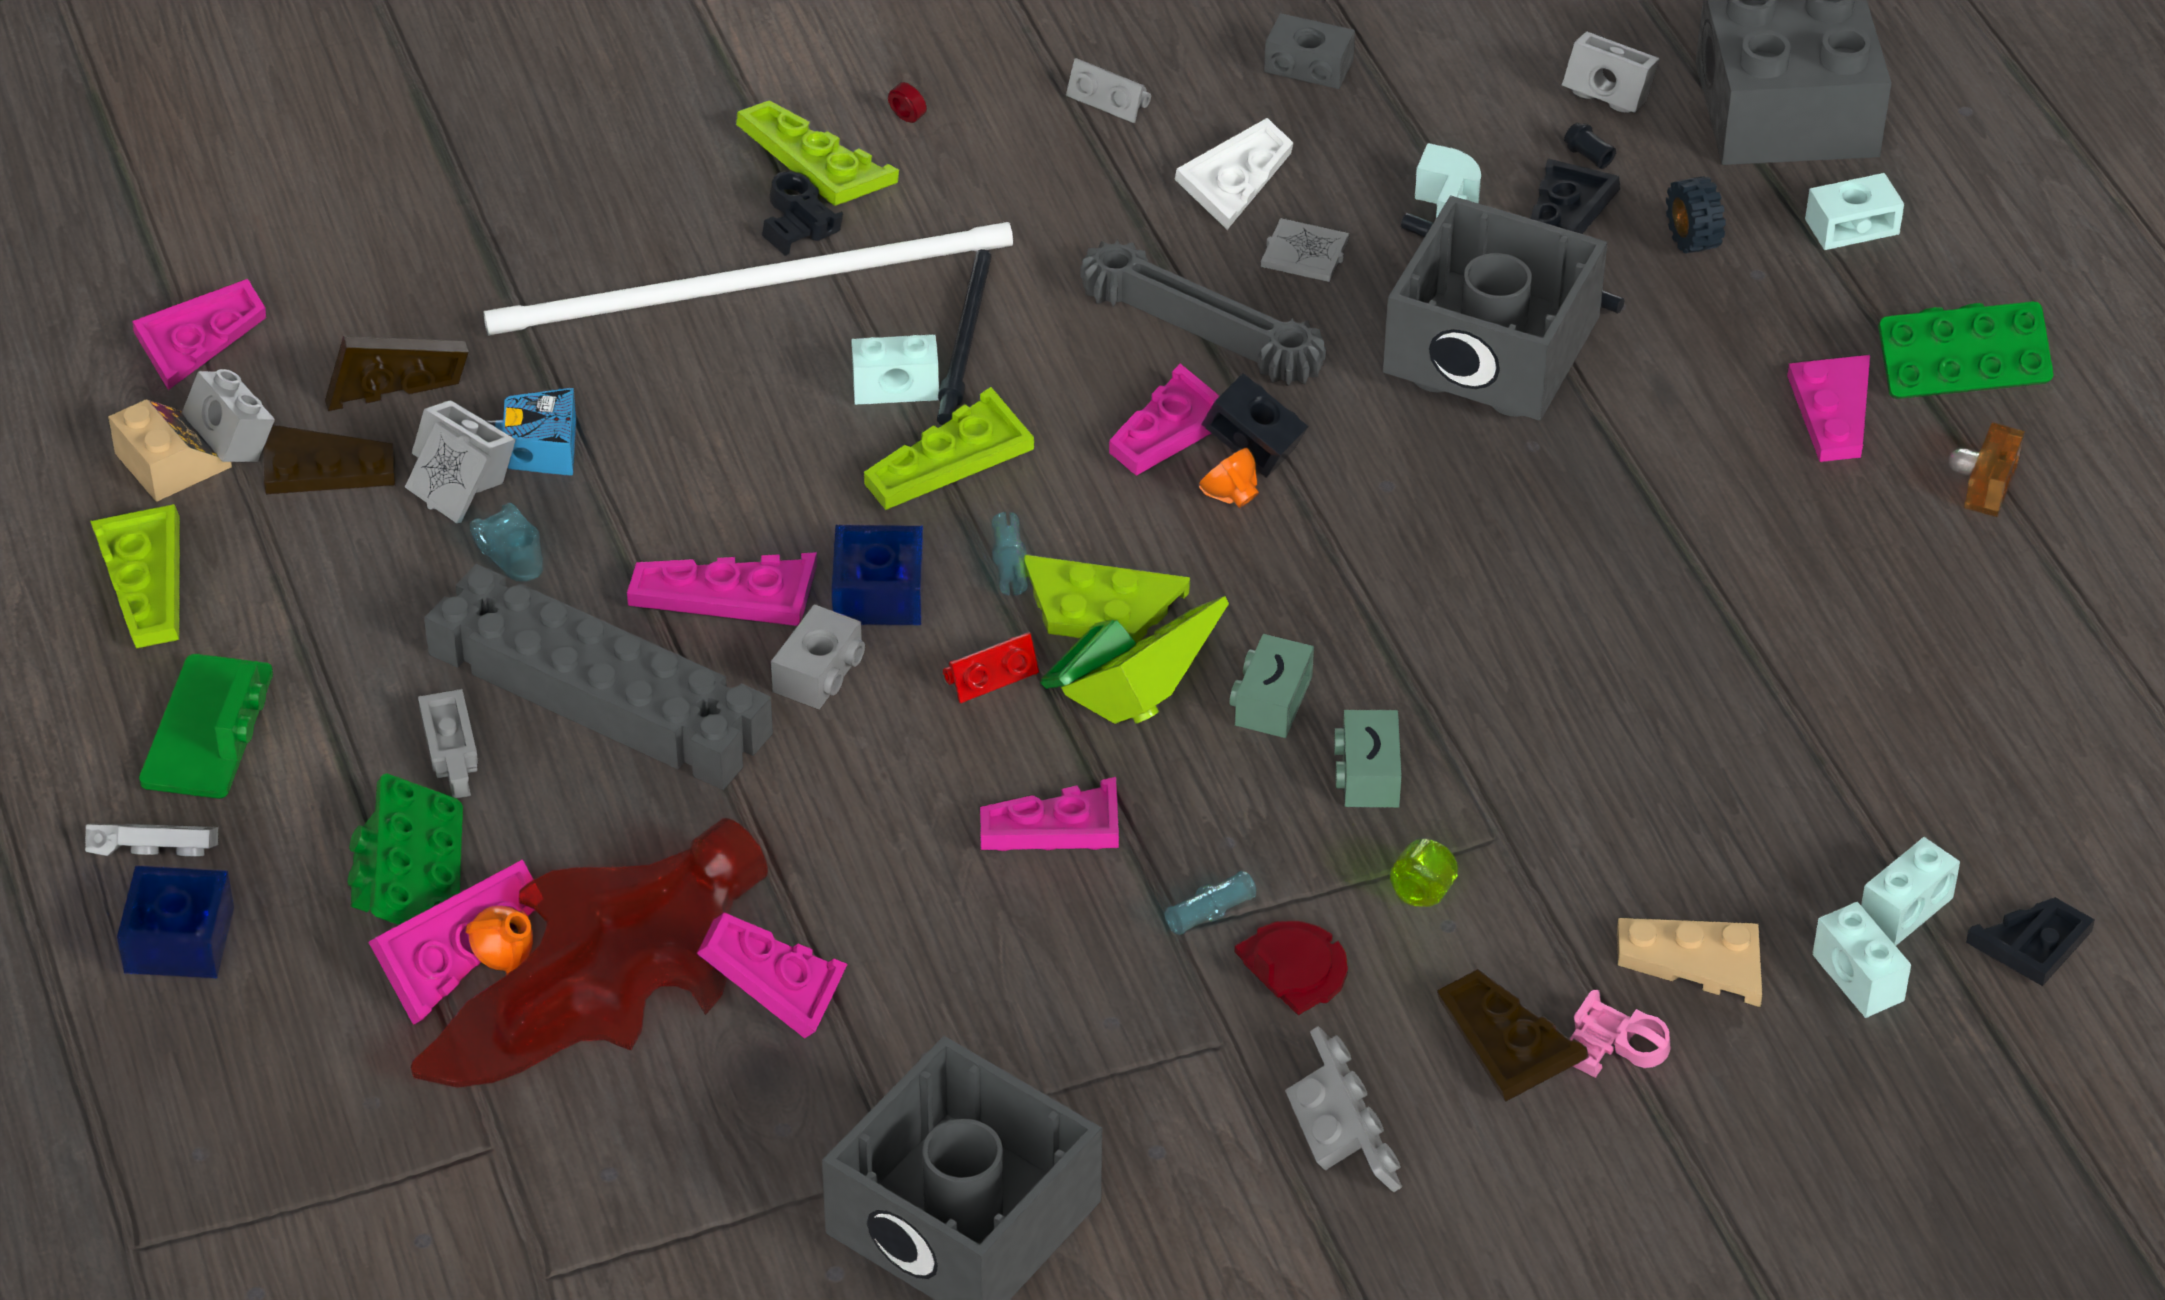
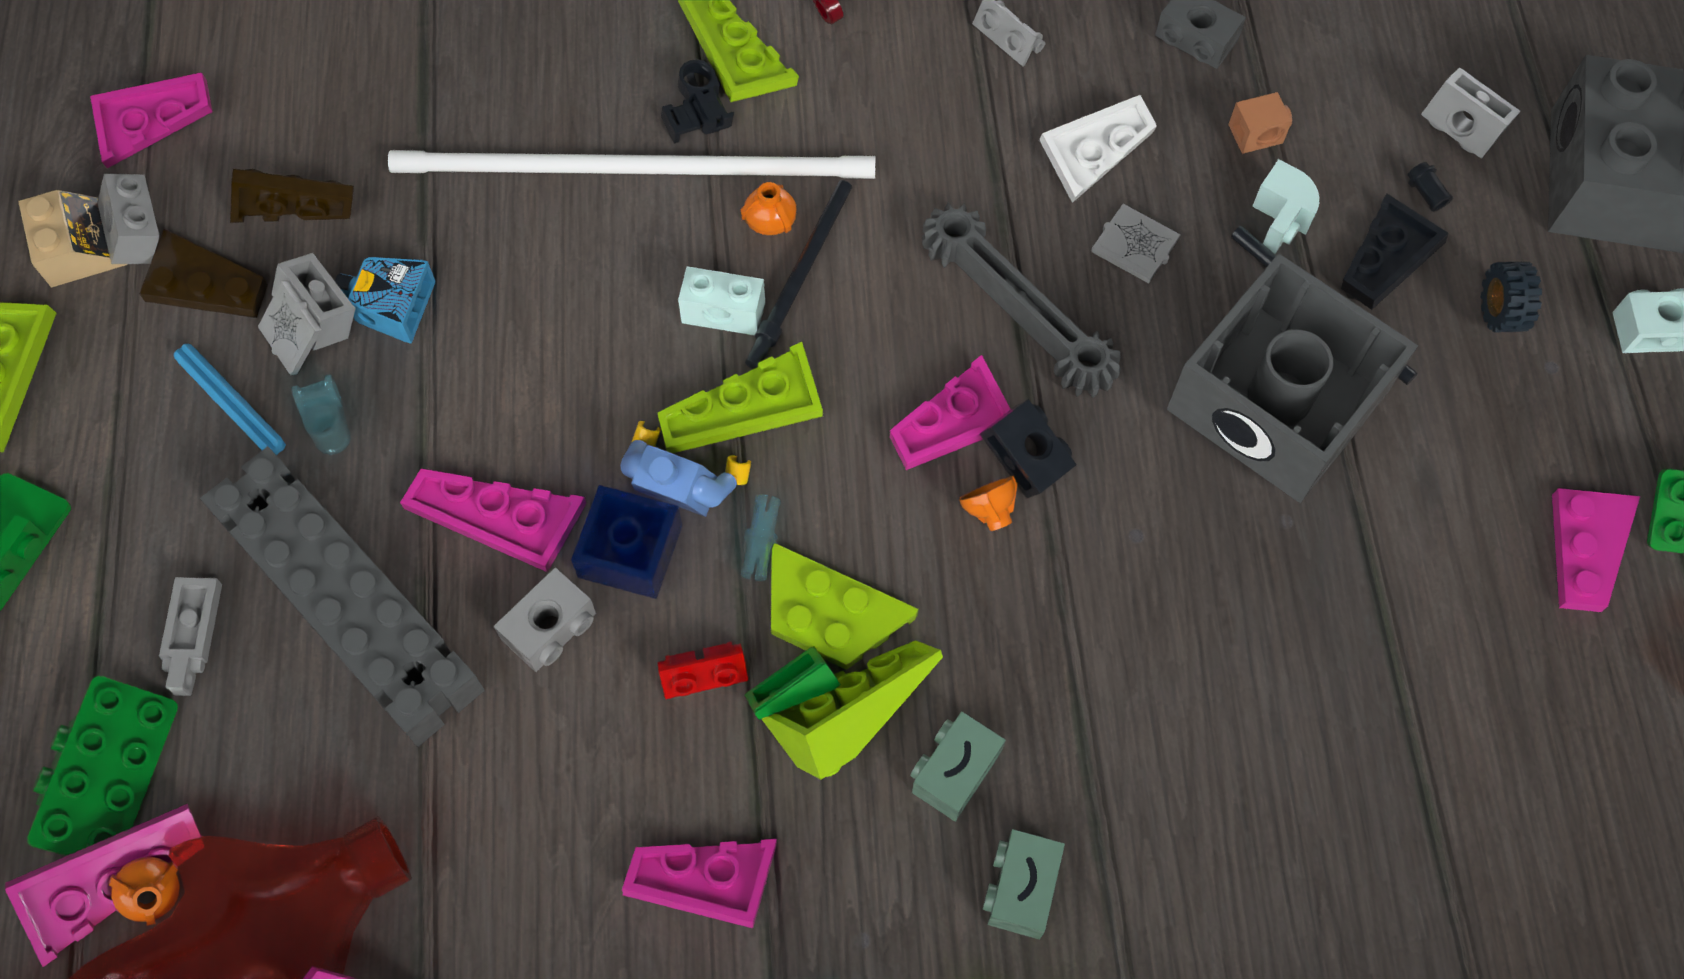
camera: 15 degrees right, 20 degrees up
(396, 550) = (228, 399): none -> dark azure axle
(909, 503) = (677, 478): none -> medium blue torso
(911, 289) = (769, 215): none -> orange piece
(1399, 121) = (1260, 122): none -> nougat brick

